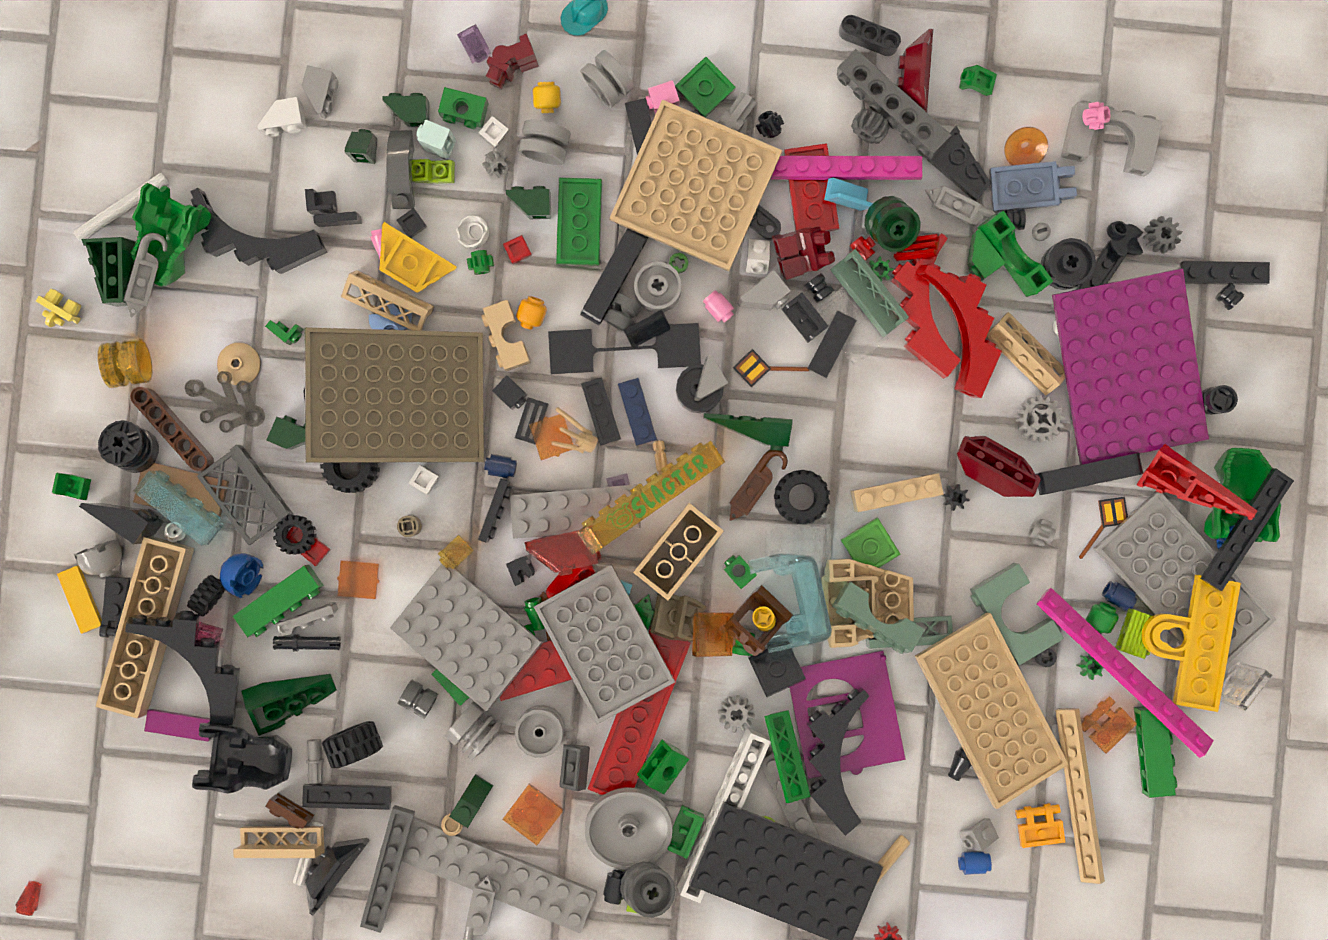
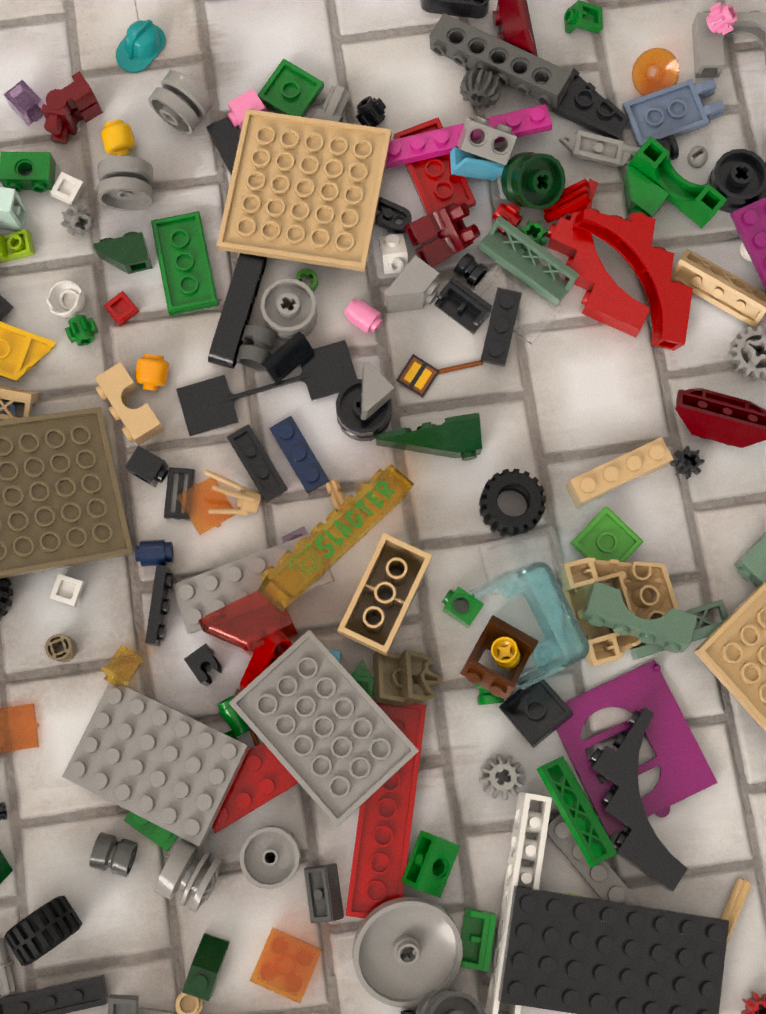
camera: 10 degrees left, 10 degrees down
(710, 636) = (448, 689): clear orange plate -> none
(755, 485) = (454, 504): reddish brown plate -> none
(858, 183) = (484, 145): none -> light grey brick

